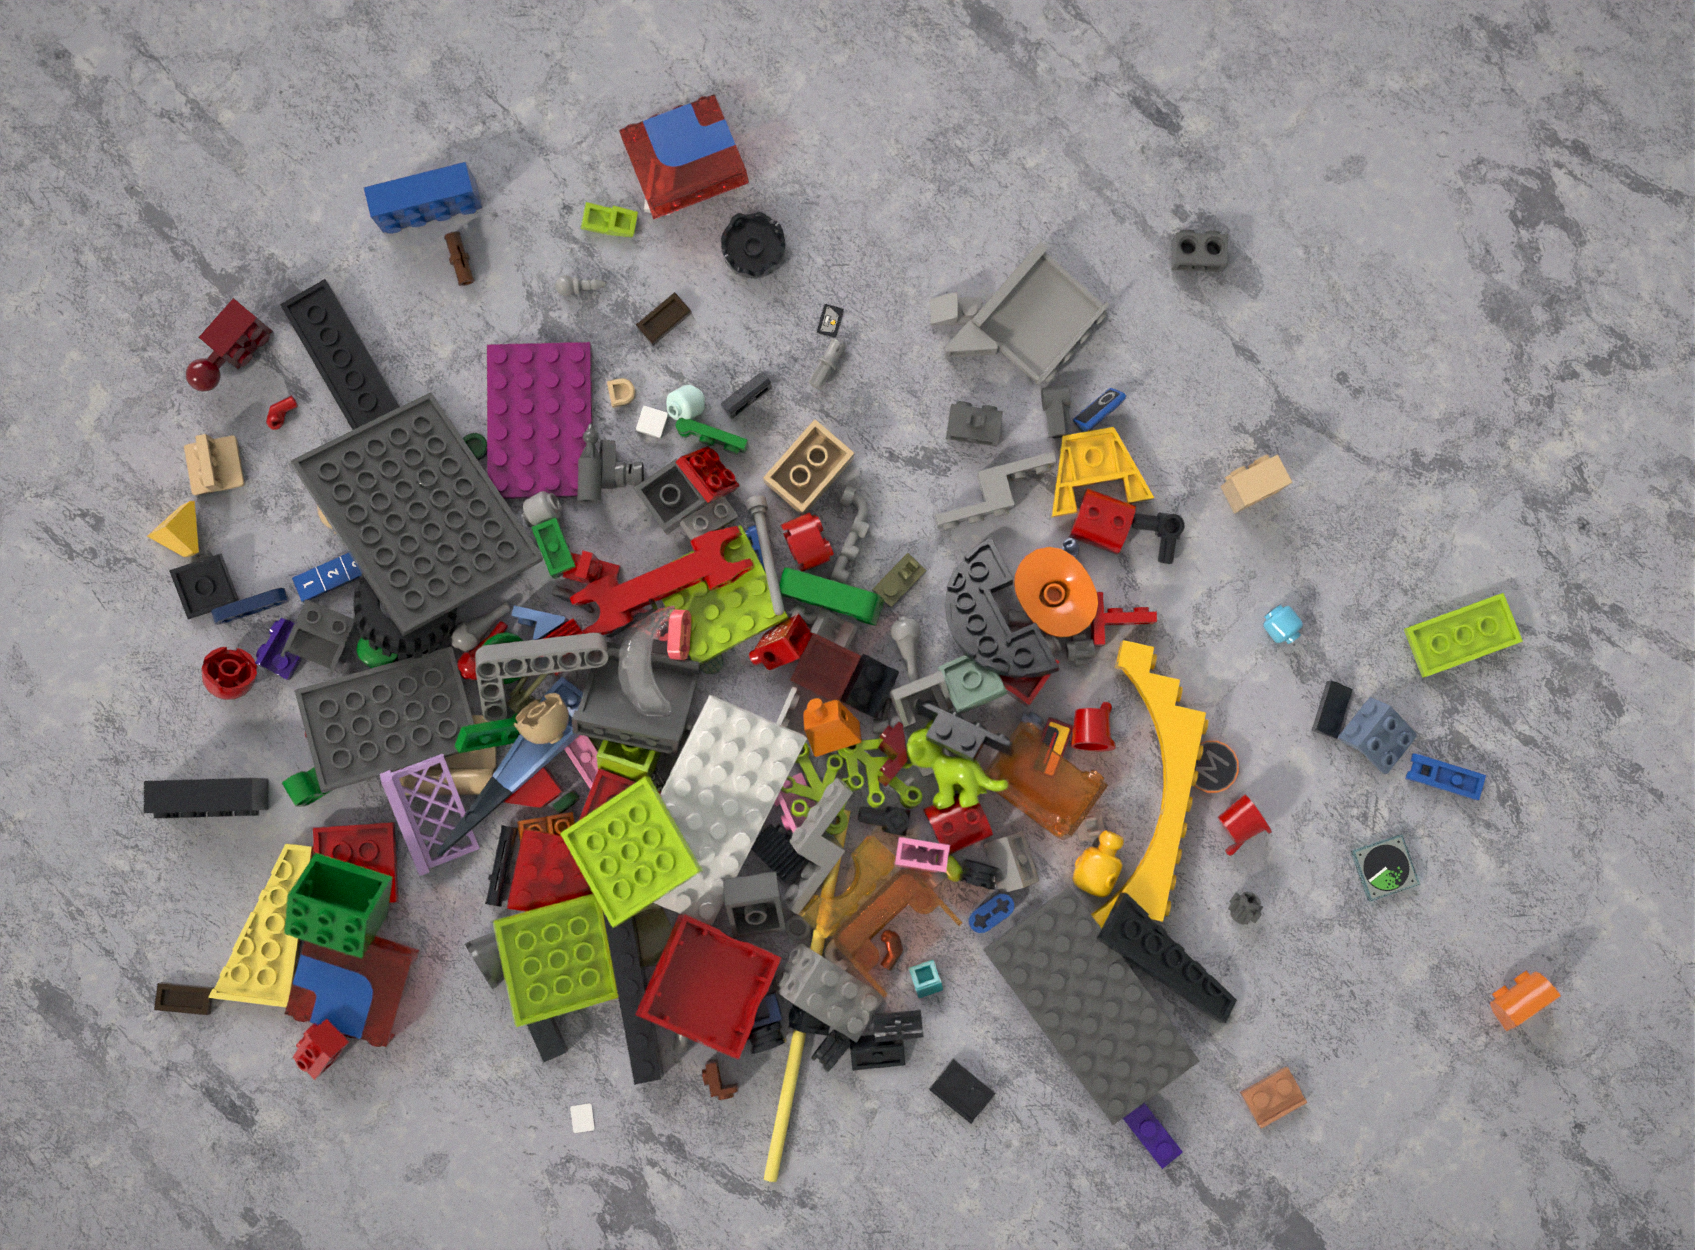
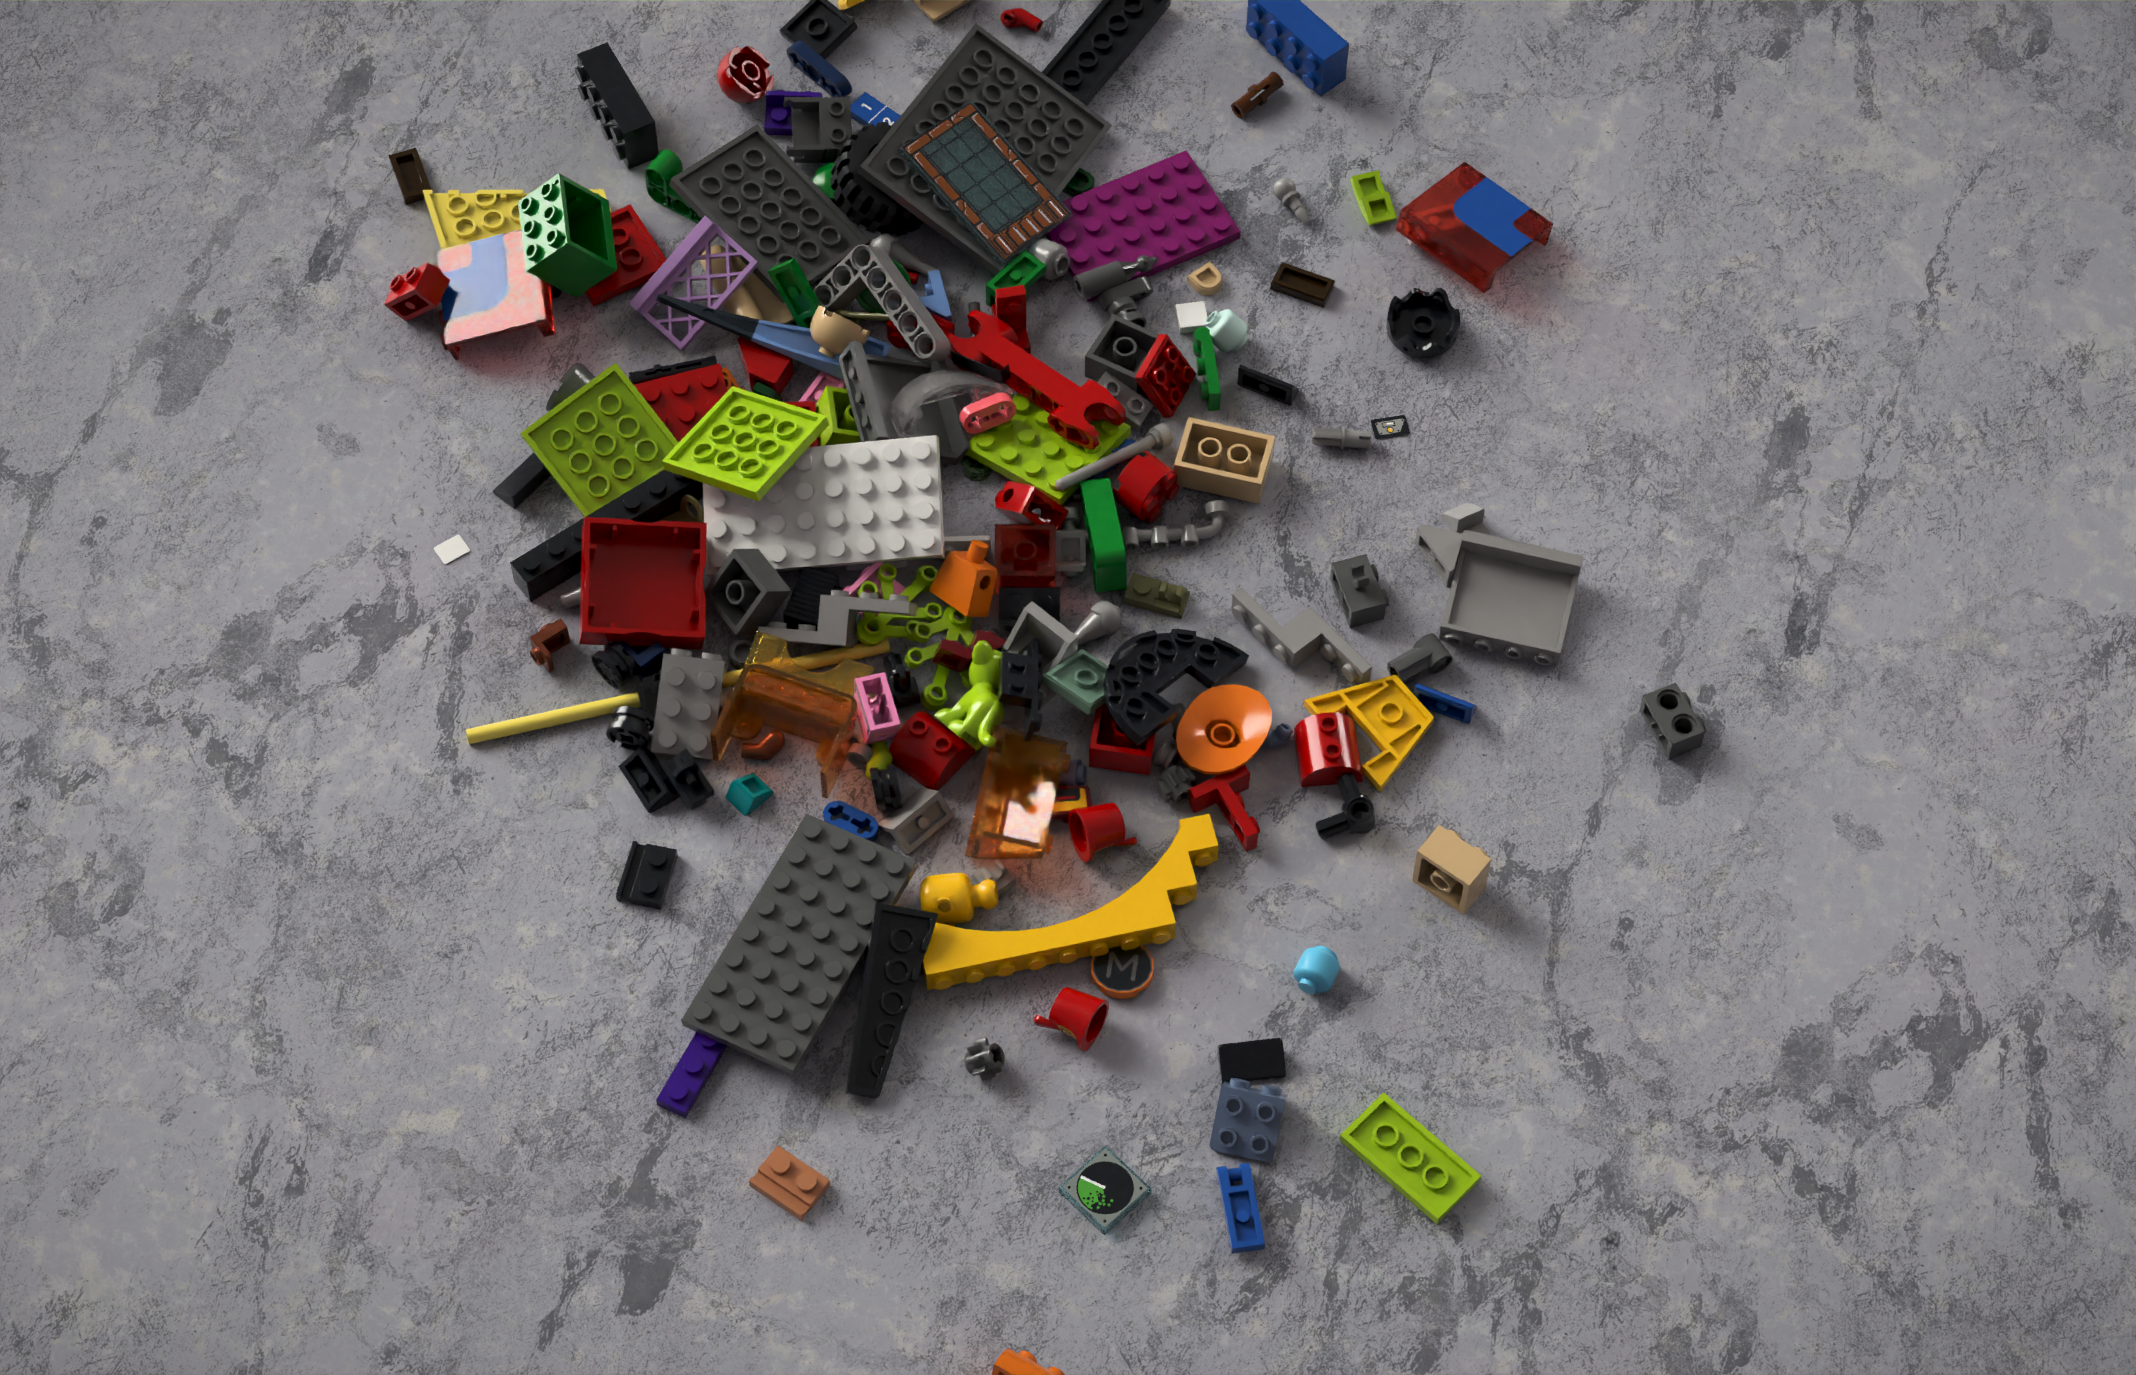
camera: 65 degrees right, 25 degrees down
(454, 529) = (985, 182): none -> piece

